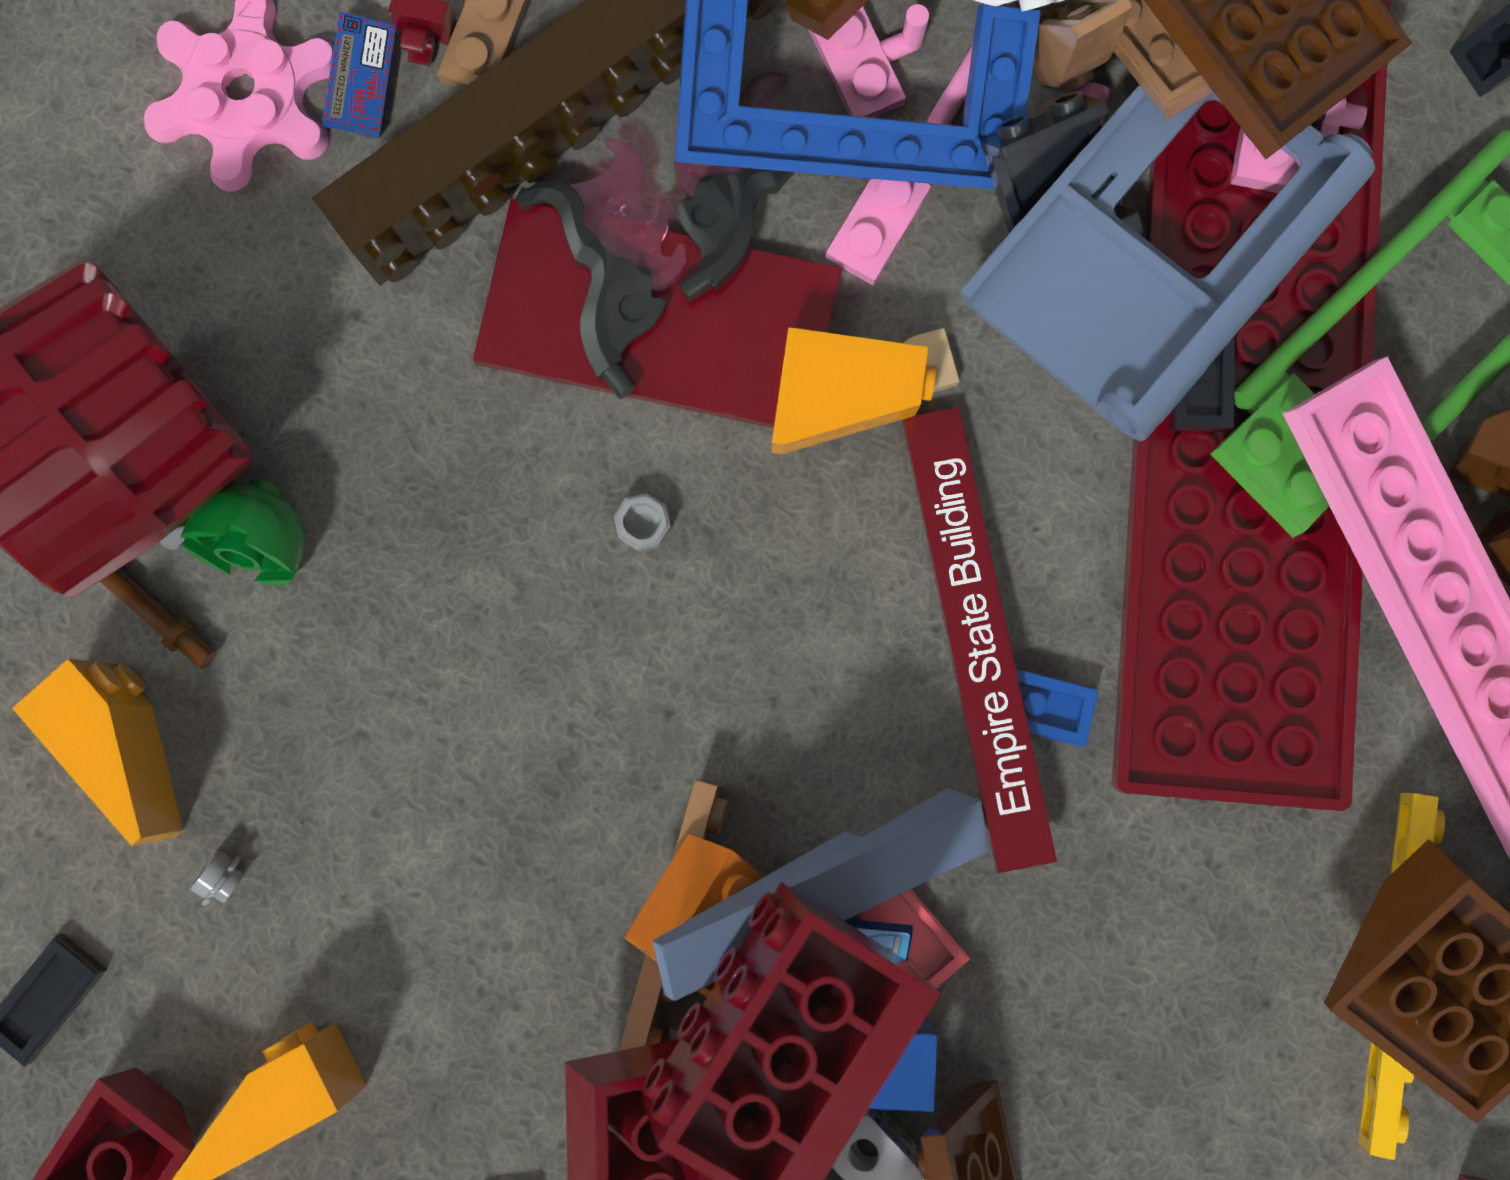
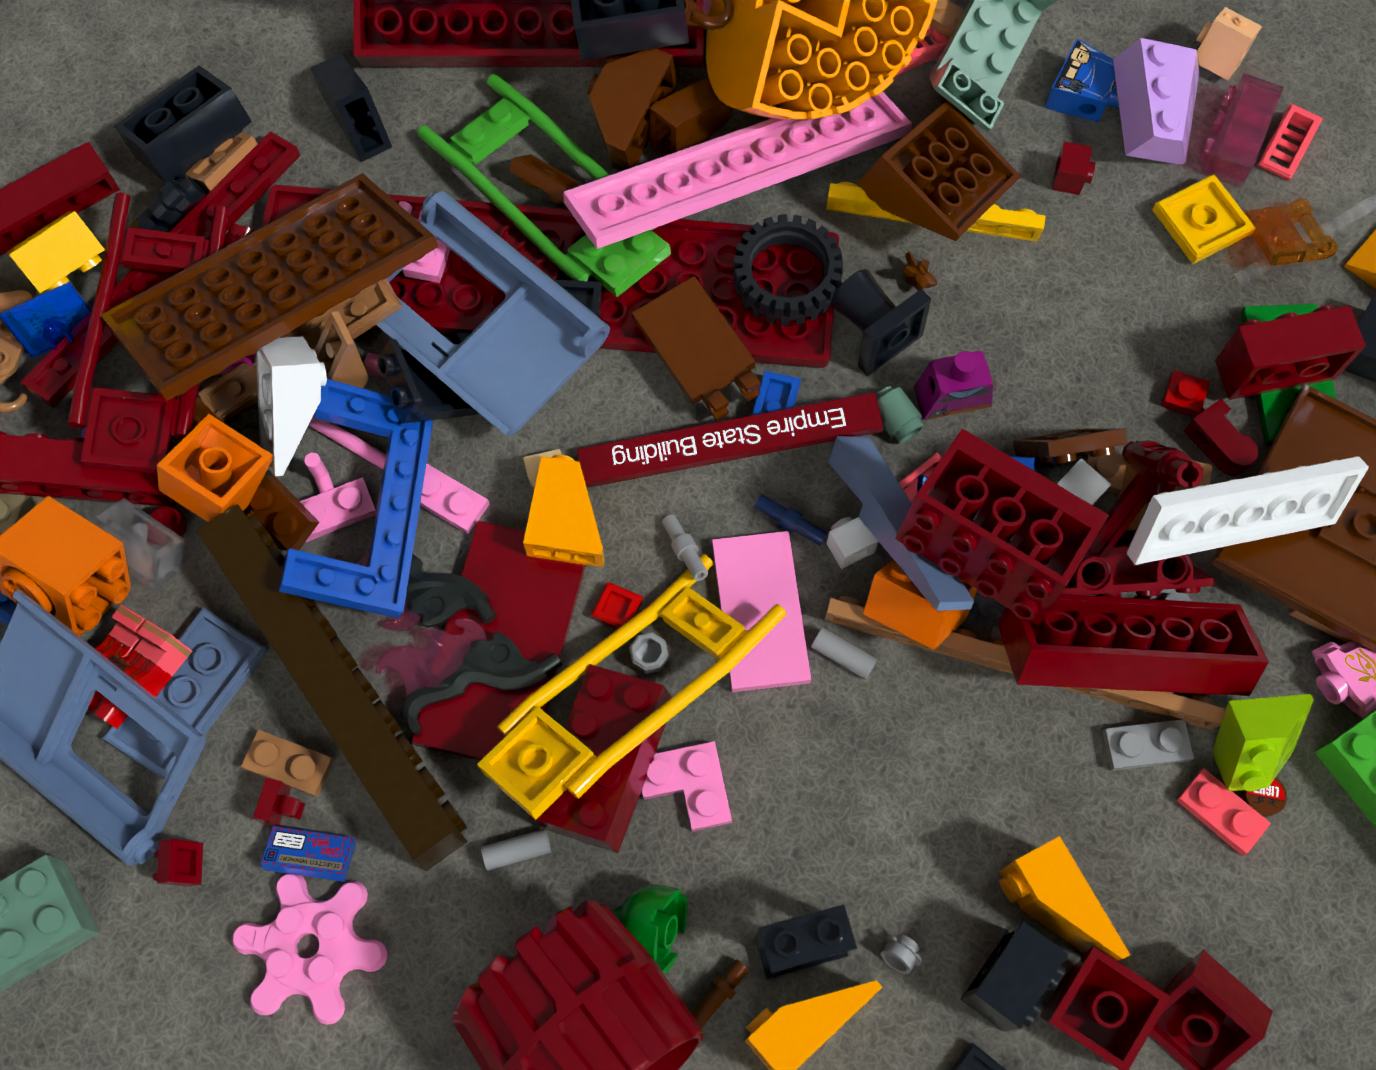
camera: 90 degrees left, 15 degrees down
(163, 1034) = (1015, 978): none -> black brick
(202, 740) = (805, 941): none -> black panel
(364, 349) = (516, 849): none -> light grey hinge
(455, 365) = (544, 759): none -> yellow plate
(470, 593) = (696, 773): none -> bright pink plate
(478, 459) = (603, 713): none -> dark red brick
(646, 808) = (844, 653): none -> light grey hinge
(711, 684) = (751, 579): none -> bright pink tile
(714, 475) = (616, 606): none -> red tile
(803, 571) = (685, 547): none -> light grey bar
(818, 817) = (851, 541): none -> white plate
(854, 730) = (790, 519): none -> dark blue bar
(1032, 898) = (898, 414): none -> sand green brick
(1078, 990) = (959, 384): none -> magenta torso
(1134, 582) = (697, 346): none -> reddish brown tile
(1192, 871) = (884, 325): none -> black plant
(1285, 940) = (918, 273): none -> reddish brown plant
(1340, 709) = (790, 233): none -> black tyre
(1431, 337) = (541, 175): none -> reddish brown plate

